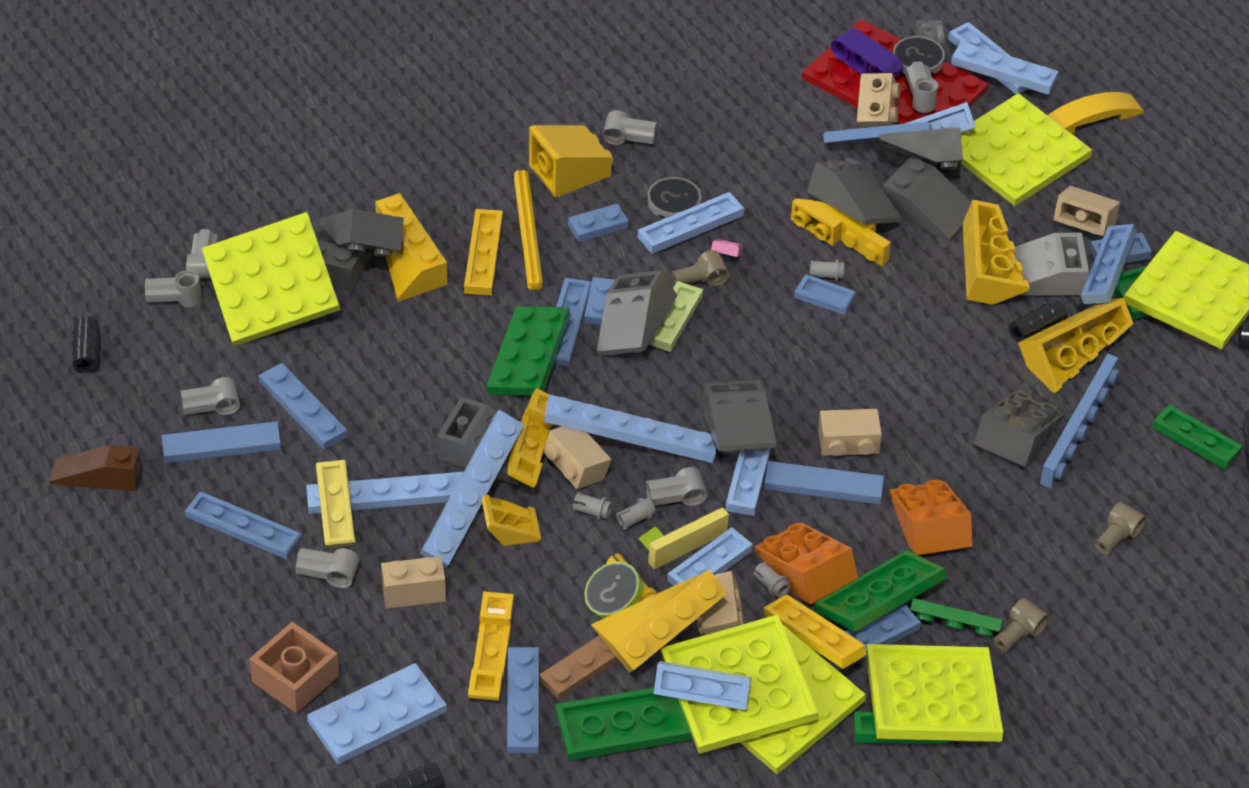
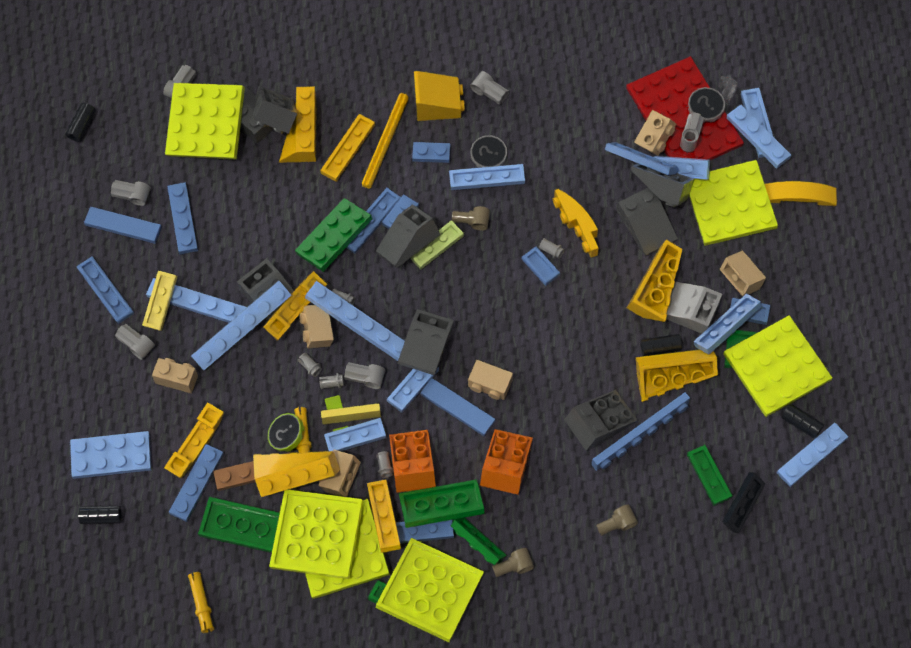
camera: 30 degrees right, 20 degrees up
(102, 468) = (43, 217): reddish brown slope -> none
(183, 288) = (150, 101): light grey piece -> none
(294, 667) = (76, 406): nougat brick -> none
(510, 522) = (255, 354): yellow slope -> none
(702, 685) = (289, 529): light blue plate -> none
(727, 247) = (497, 206): bright pink tile -> none
(852, 191) = (596, 200): dark grey slope -> none
(865, 54) = (670, 93): dark purple beam -> none

